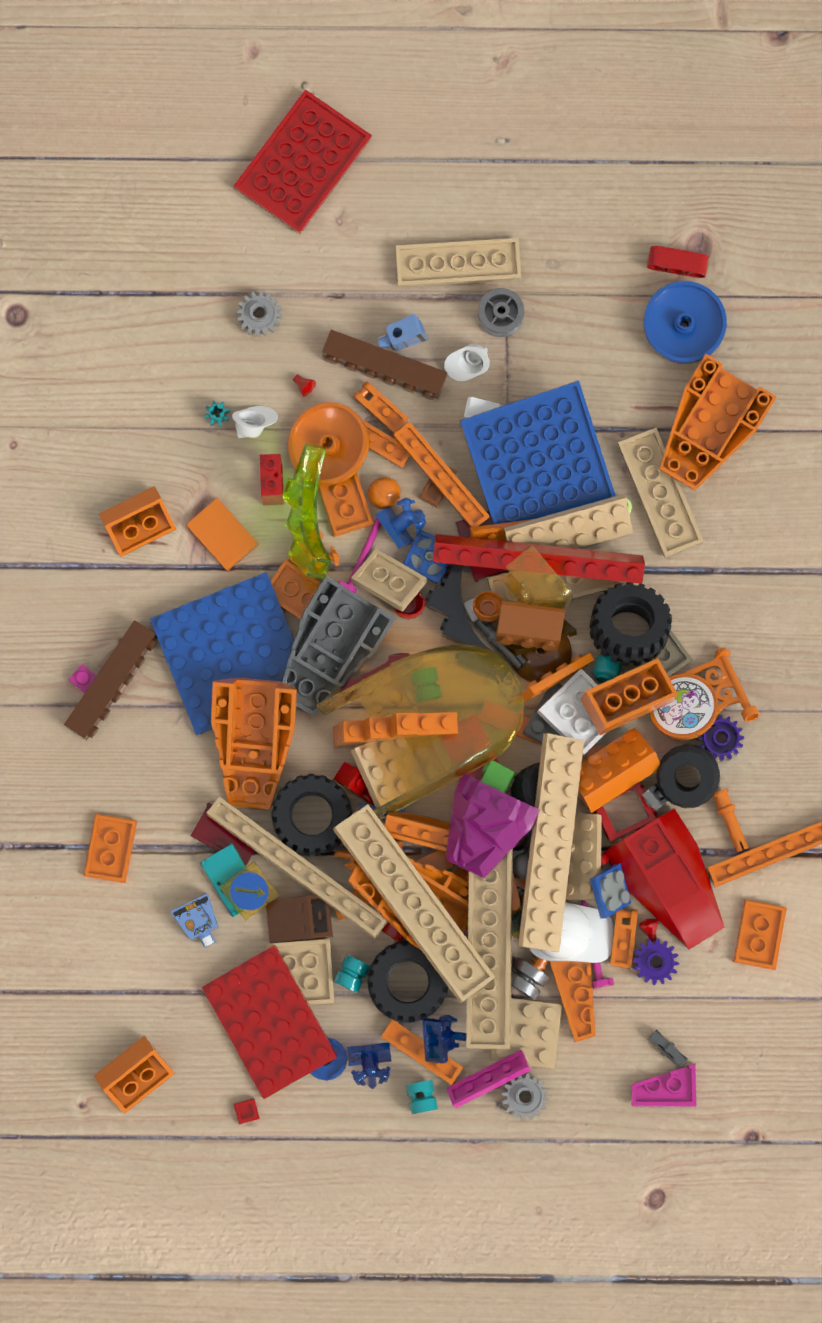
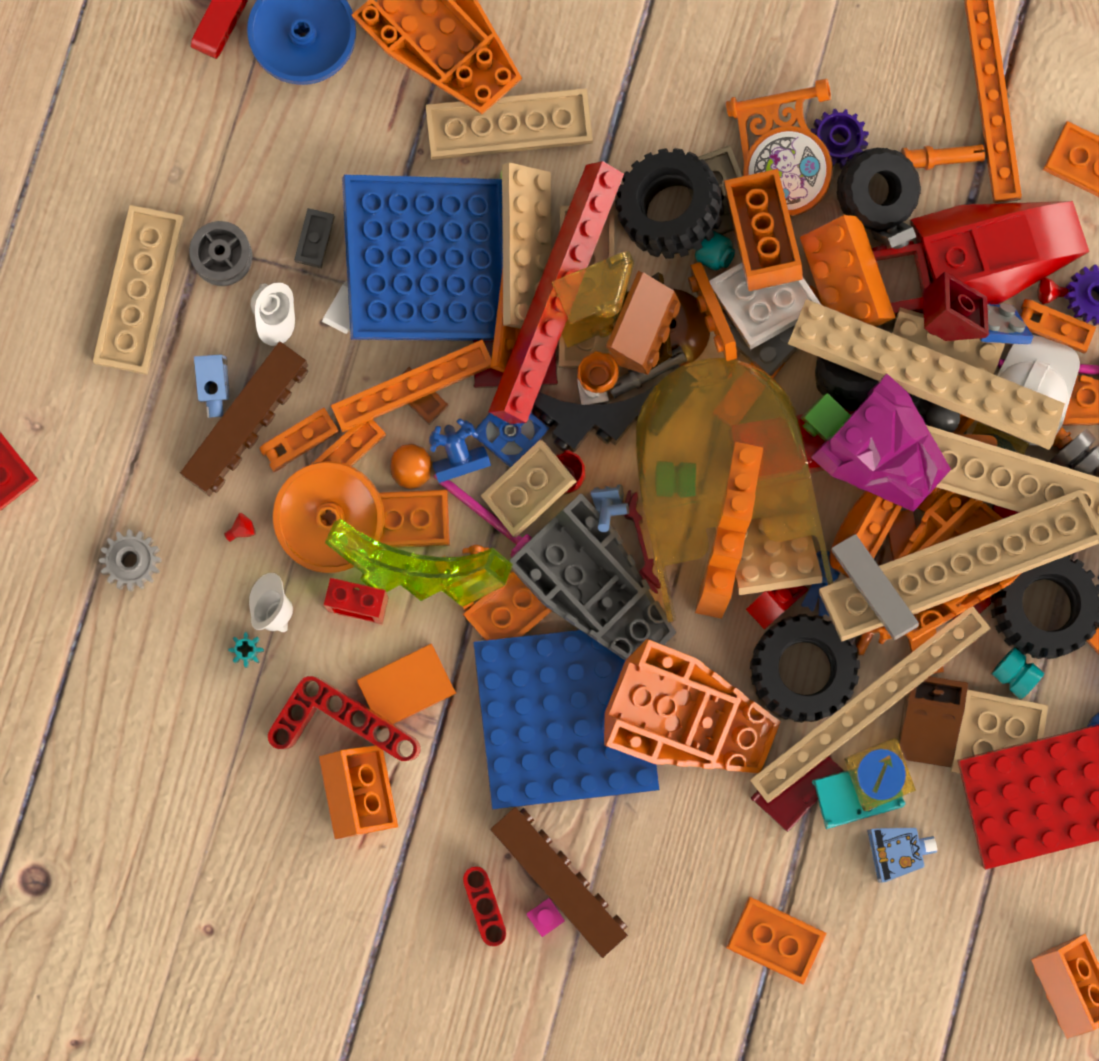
camera: 80 degrees left, 0 degrees up
(74, 642) = (493, 918): none -> red beam
(187, 495) = (344, 716): none -> red beam
(378, 842) = (875, 587): none -> light grey tile
(394, 642) = (609, 503): none -> medium blue arm
(532, 376) = (314, 238): none -> dark grey plate
(607, 853) = (954, 310): none -> dark red slope

